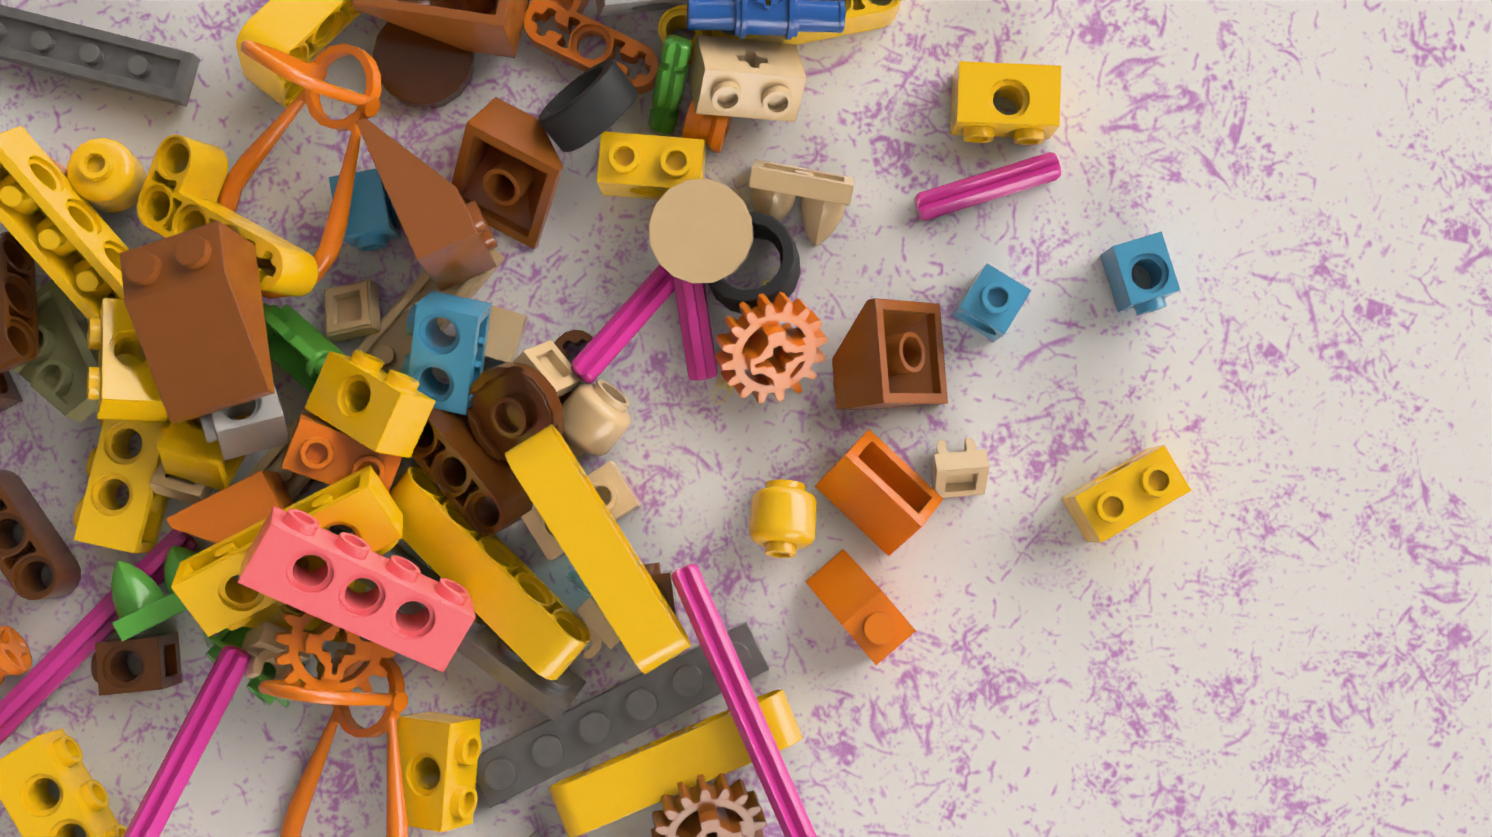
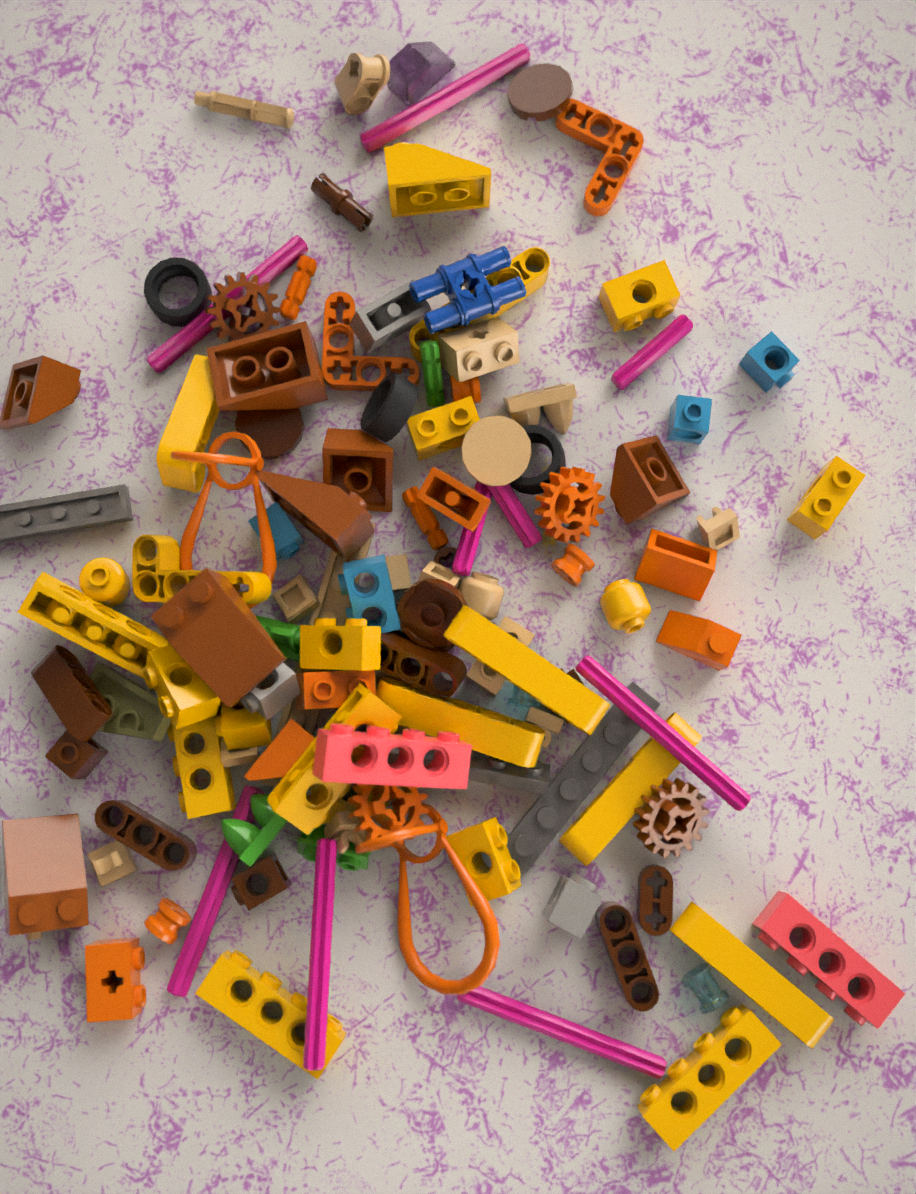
camera: 25 degrees left, 5 degrees down
(573, 277) = (425, 519): none -> orange axle
(616, 269) = (453, 498): none -> orange slope
(739, 430) = (573, 564): none -> orange wheel

